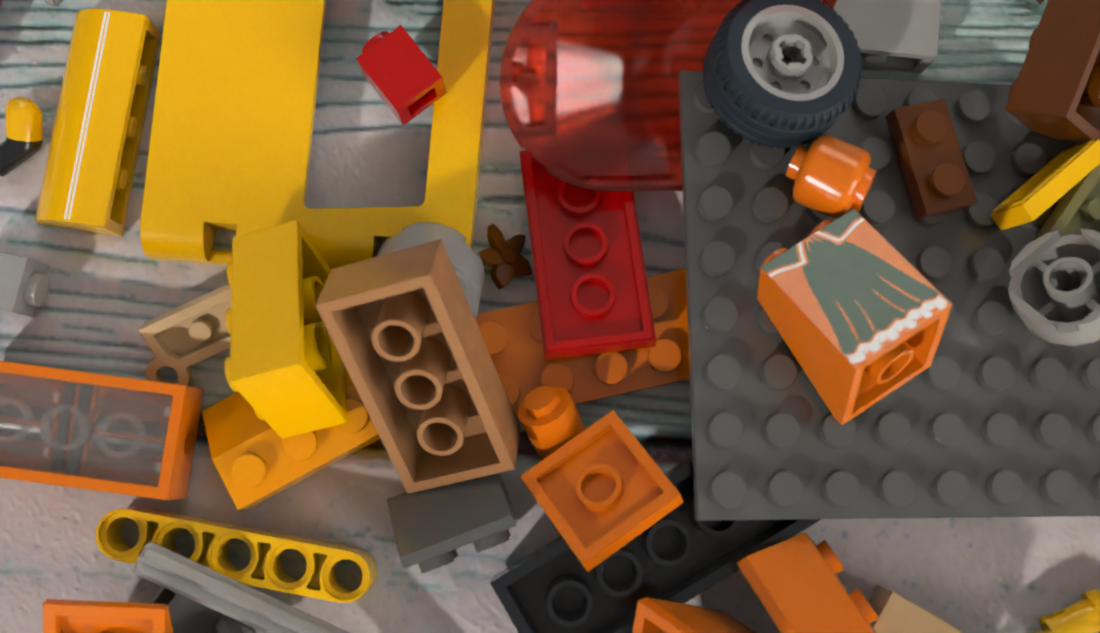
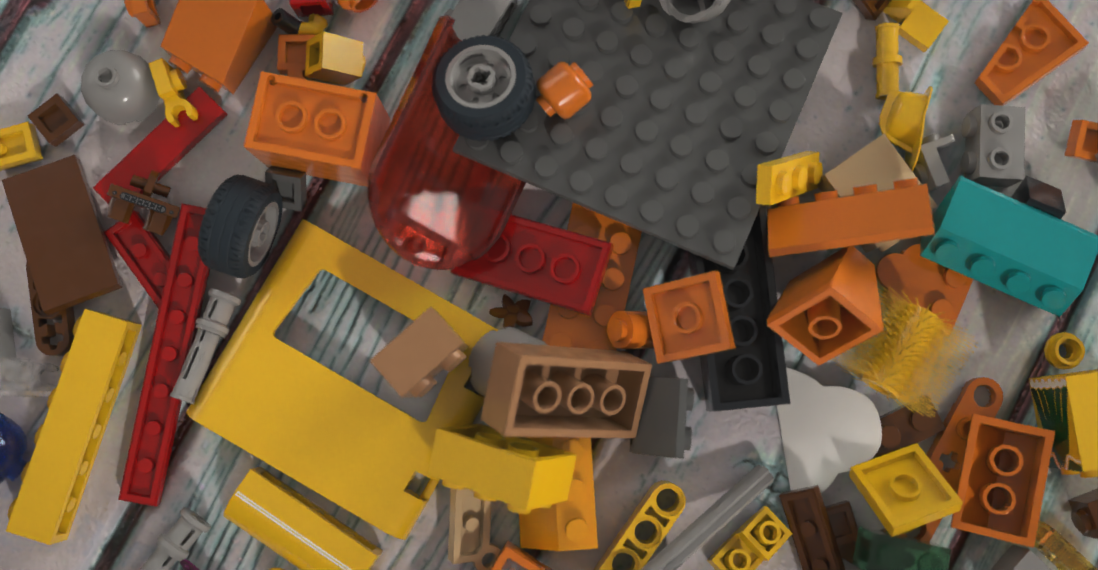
camera: 65 degrees left, 0 degrees up
(383, 153) = (420, 355): none -> medium nougat brick
(401, 73) = (370, 322): red brick -> none
(852, 313) = (652, 118): slope -> none
(862, 540) = (788, 177): none -> yellow plate
(931, 159) = (578, 26): reddish brown plate -> none

